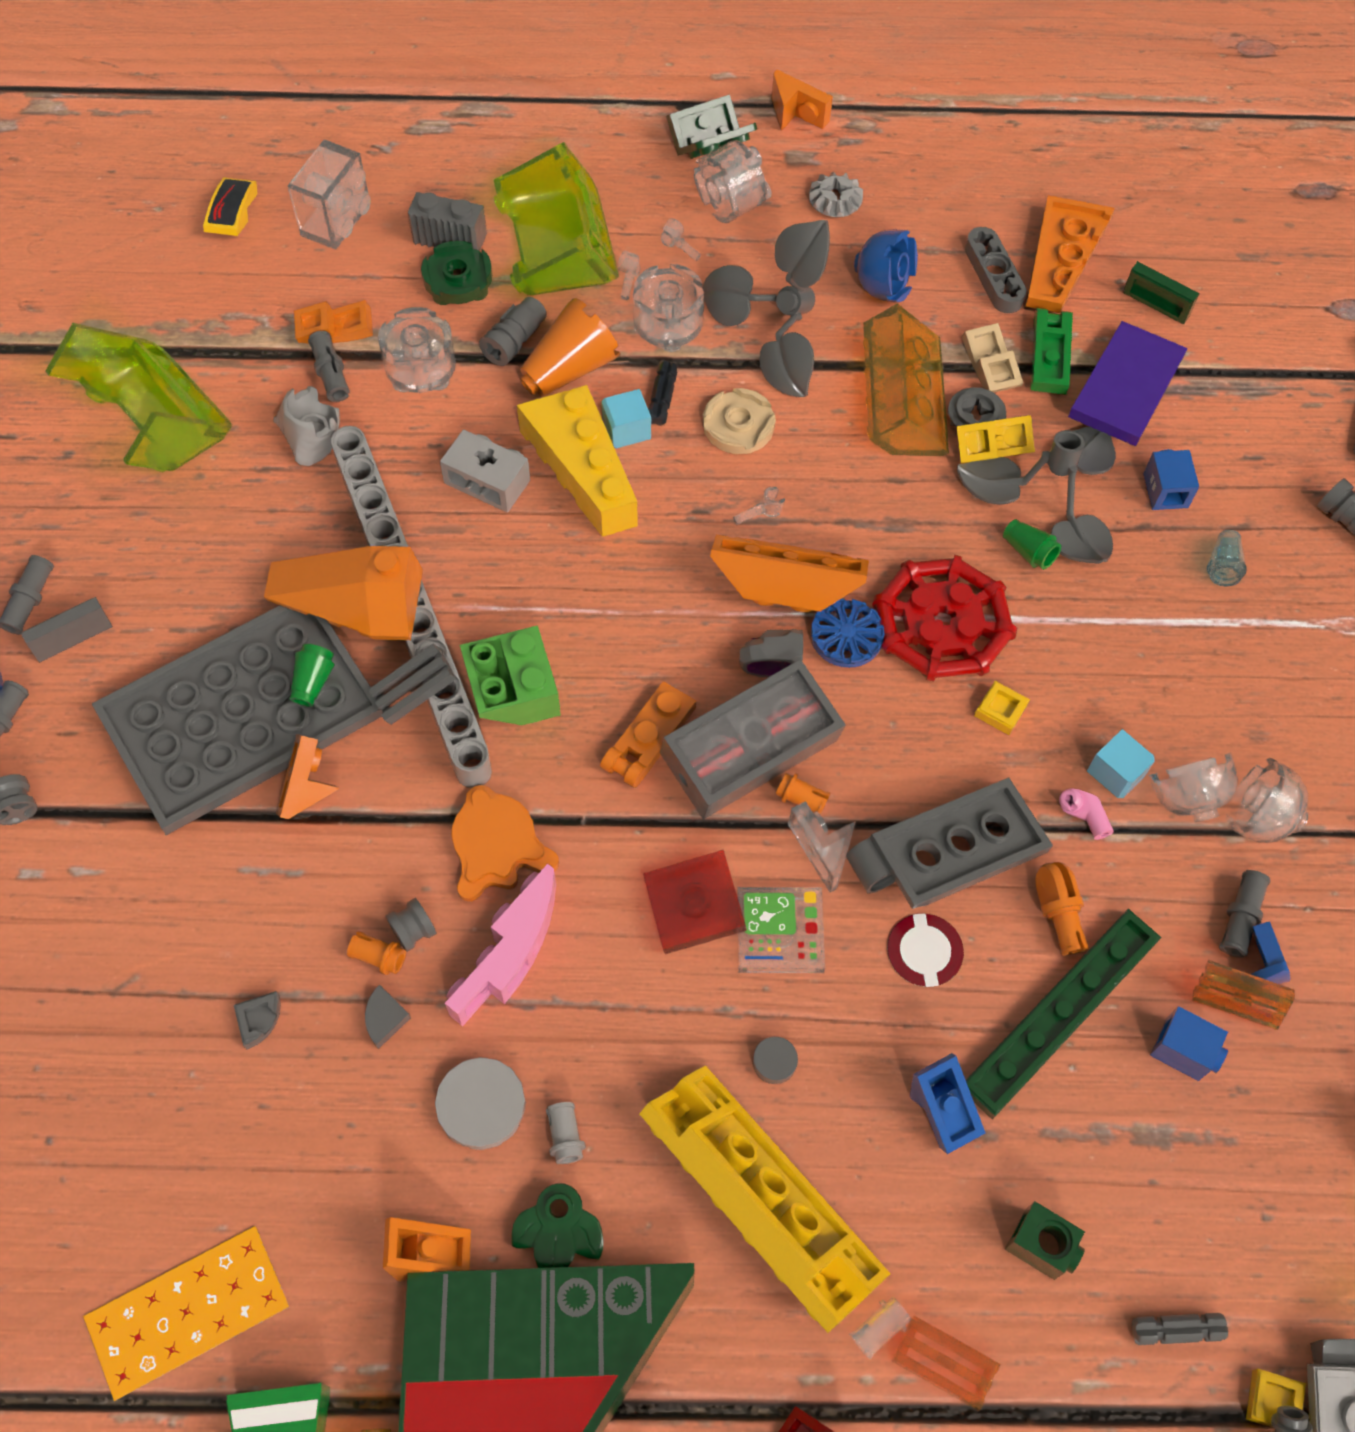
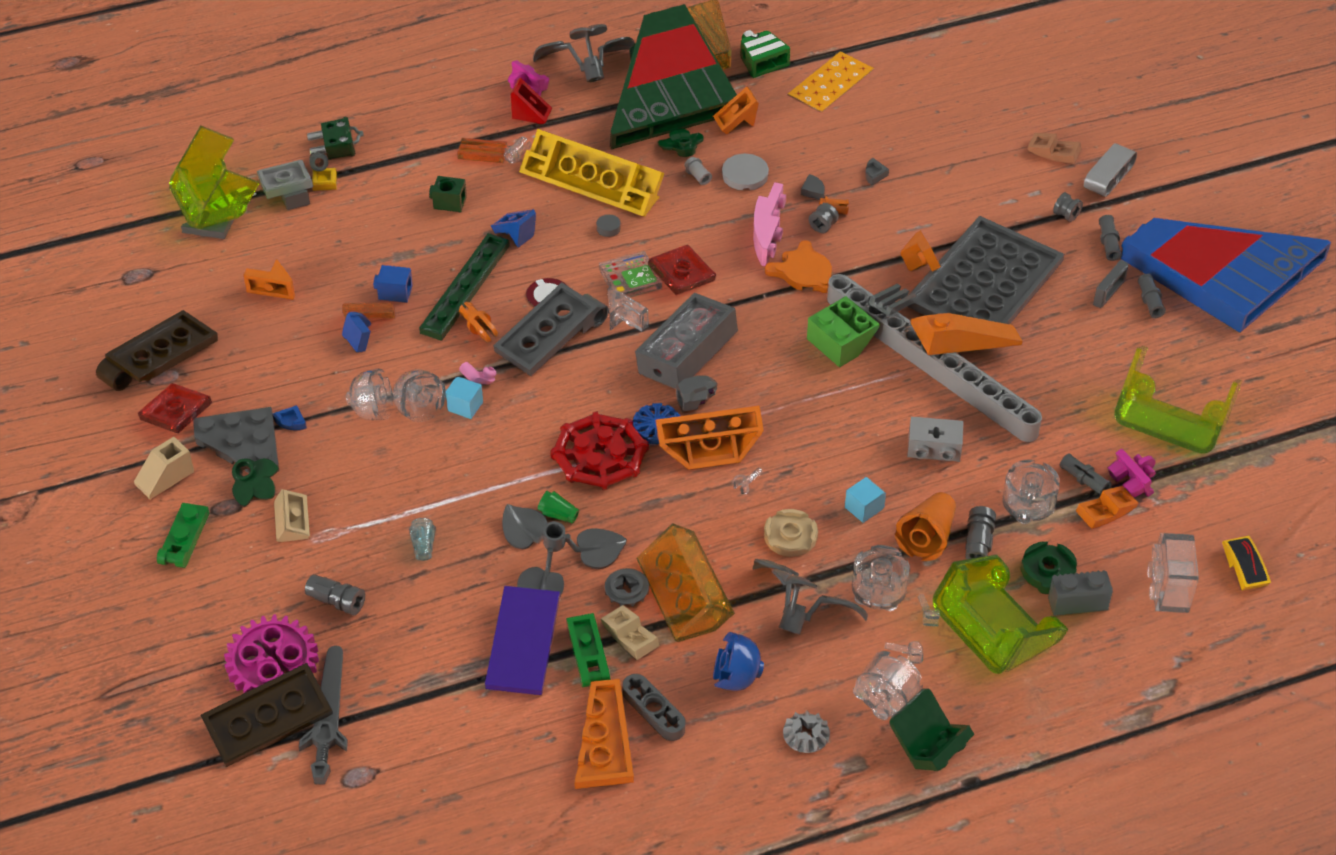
camera: 160 degrees right, 15 degrees down
(265, 340) = (1137, 471): none -> dark pink hips
(307, 425) = (1069, 430): light grey hair -> none
(310, 673) = (954, 292): green cone -> none
(580, 452) = (890, 466): yellow wedge -> none
(643, 738) = (749, 339): orange plate -> none
(662, 392) = (852, 531): black axle -> none
(796, 98) = (885, 803): orange slope -> none
(800, 791) = (642, 333): orange pin -> none
(995, 439) = (611, 564): yellow slope -> none
(1002, 707) = (545, 414): yellow tile -> none
(1160, 292) = (517, 720): dark green tile -> none
(1171, 479) = (474, 576): blue brick -> none
(1179, 1329) = (375, 187): dark grey axle -> none
(1244, 913) = (374, 349): dark grey pin -> none

